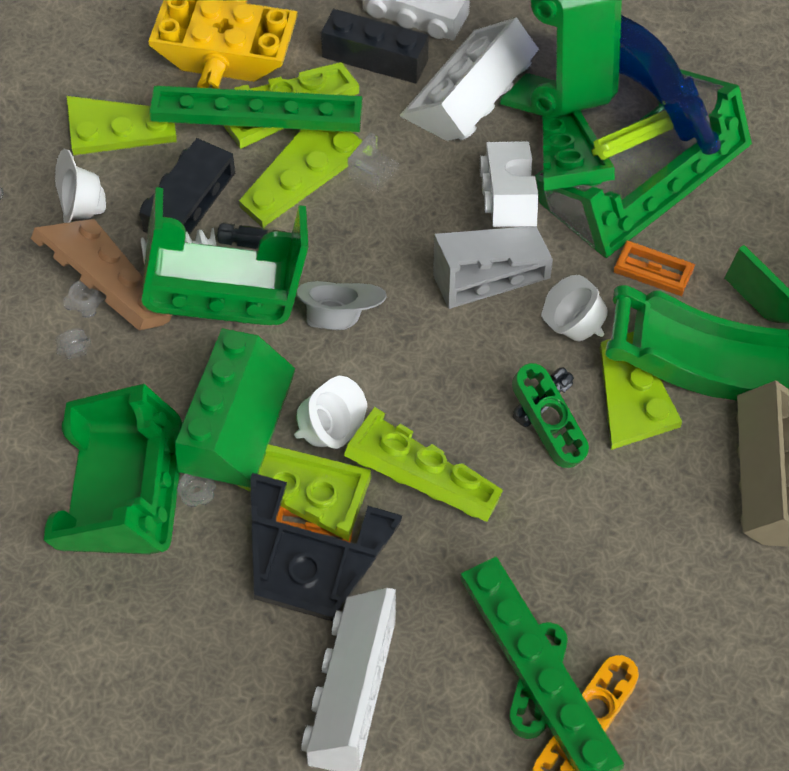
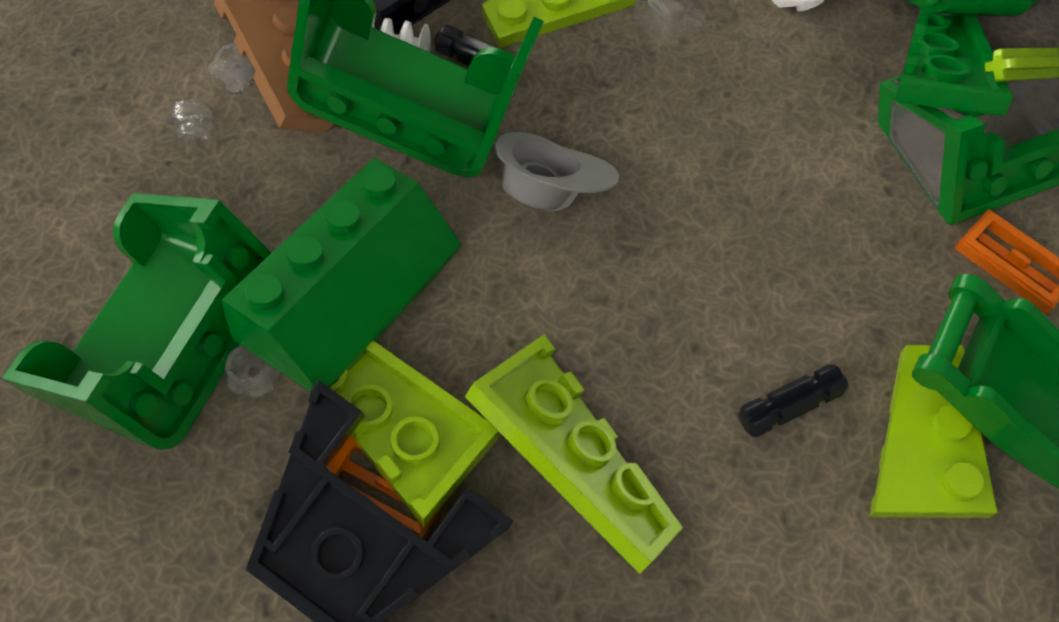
camera: 20 degrees right, 5 degrees up
(332, 413) = (478, 325): white piece -> none
(488, 262) = (780, 179): light grey wedge -> none
(508, 184) = (846, 83): white arch -> none
(545, 431) = (809, 414): green beam -> none
(575, 308) = (884, 285): white piece -> none

